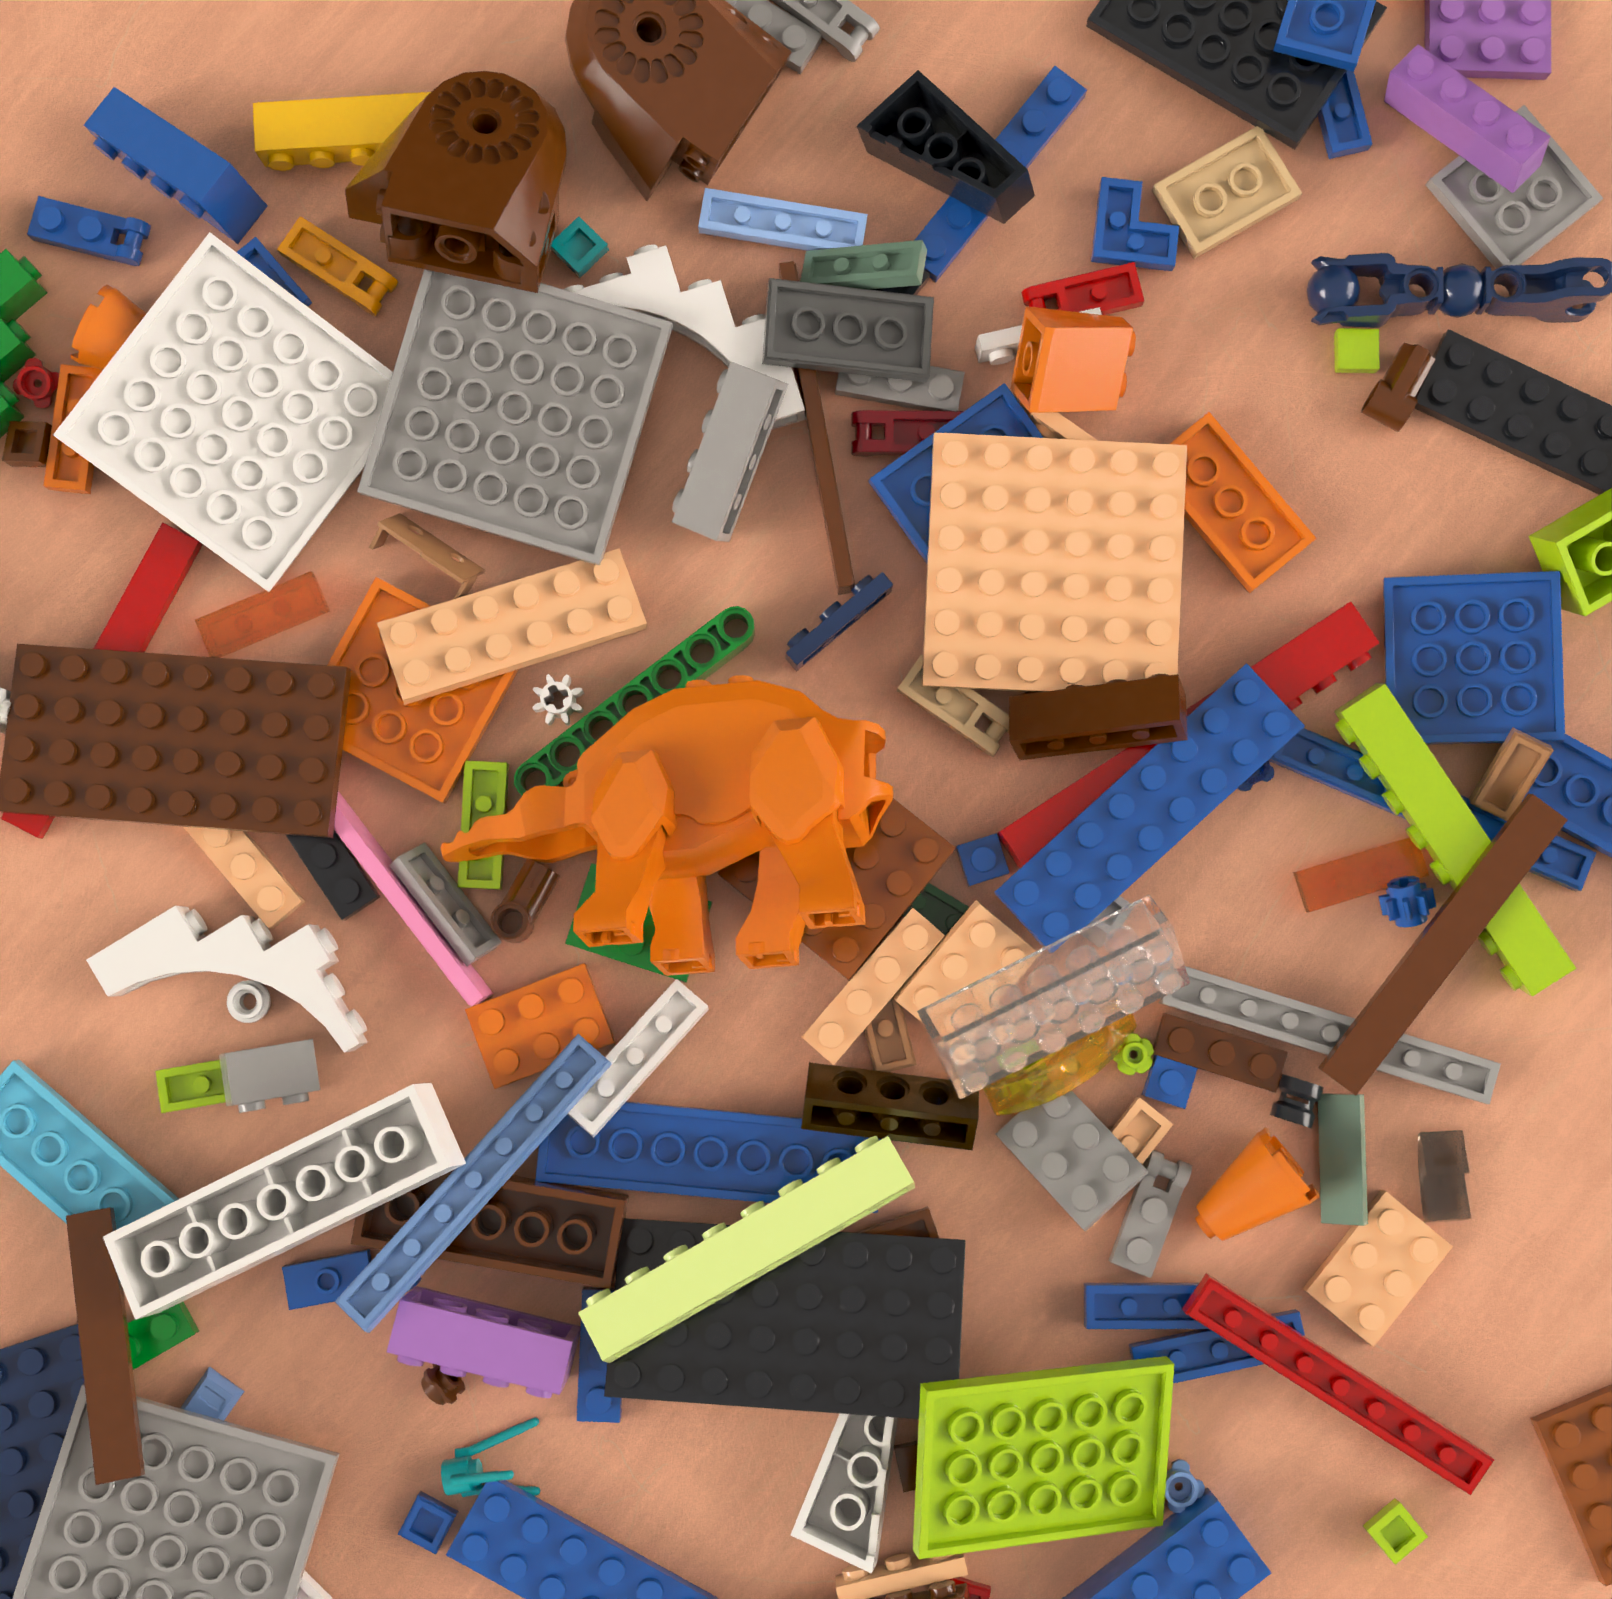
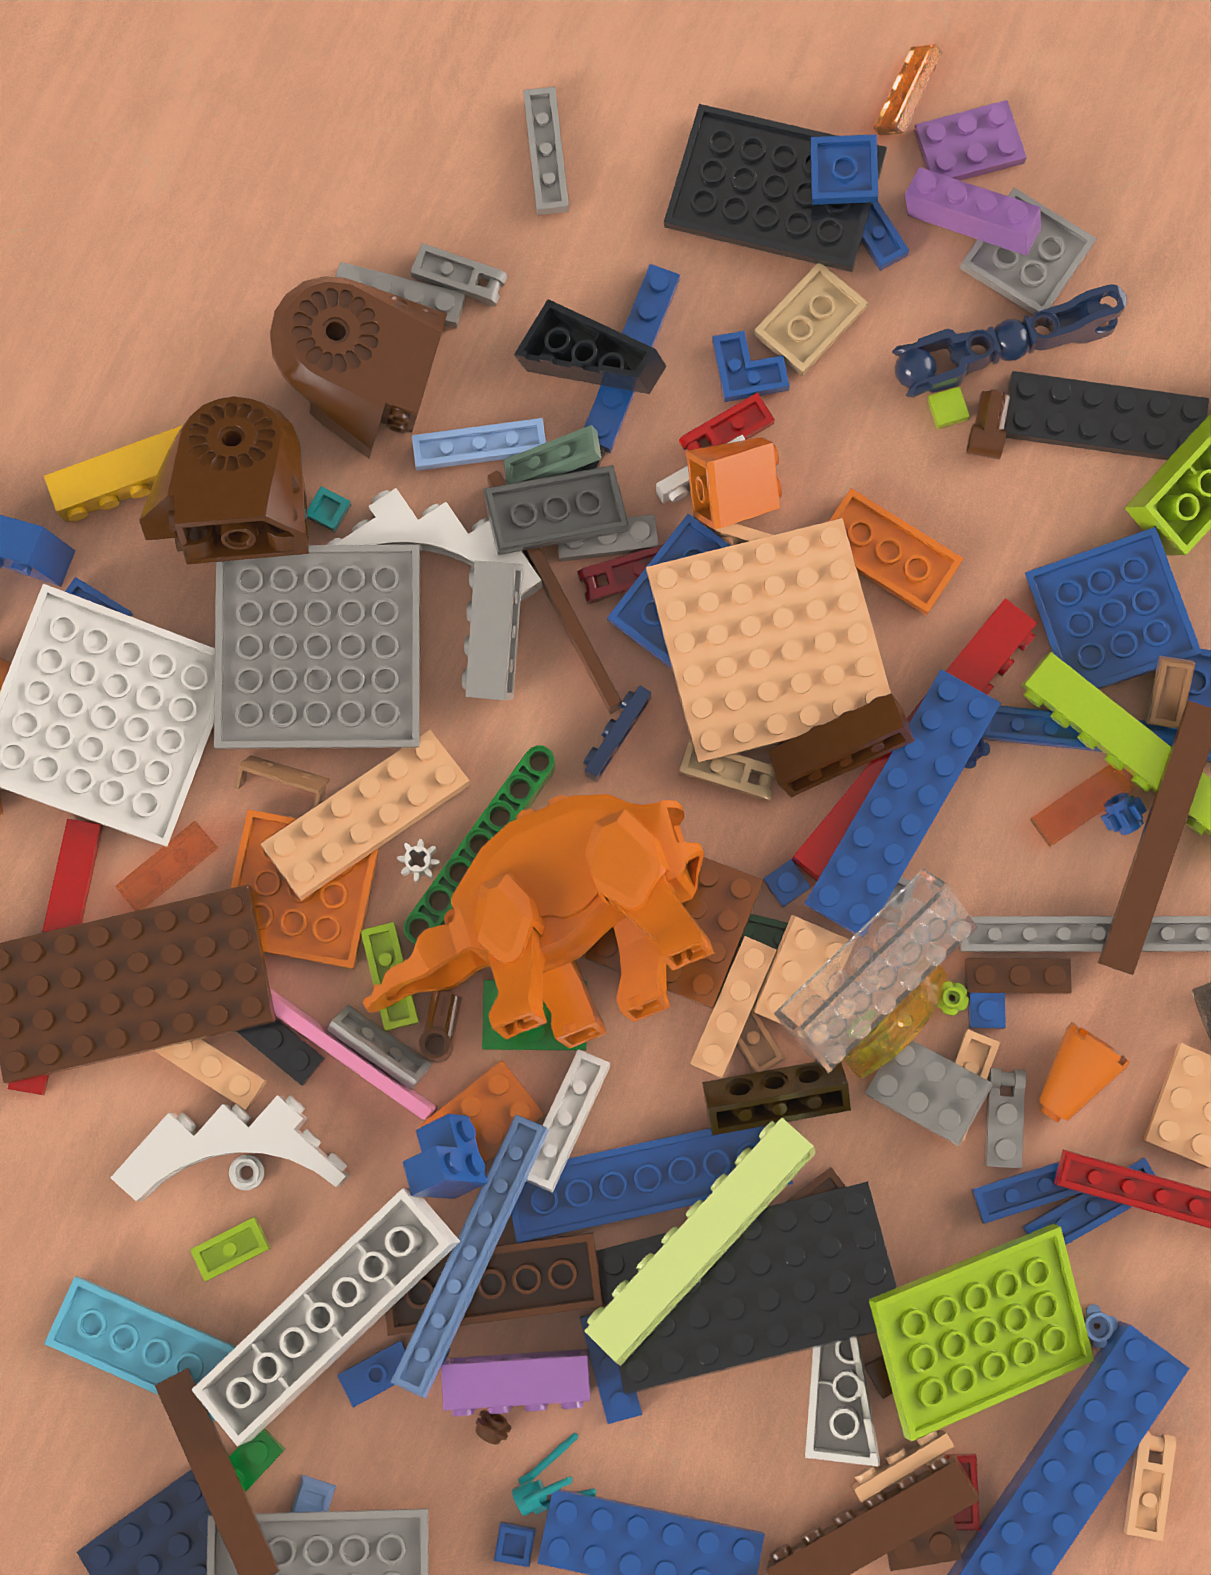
camera: 10 degrees left, 5 degrees down
(269, 1073) = (281, 1222): light grey brick -> none
(336, 265) = (144, 579): light orange plate -> none
(483, 1064) = (447, 1160): none -> blue brick
(1294, 1110) = (1089, 1002): black wheel -> none
(1342, 1159) = (1139, 1028): sand green tile -> none

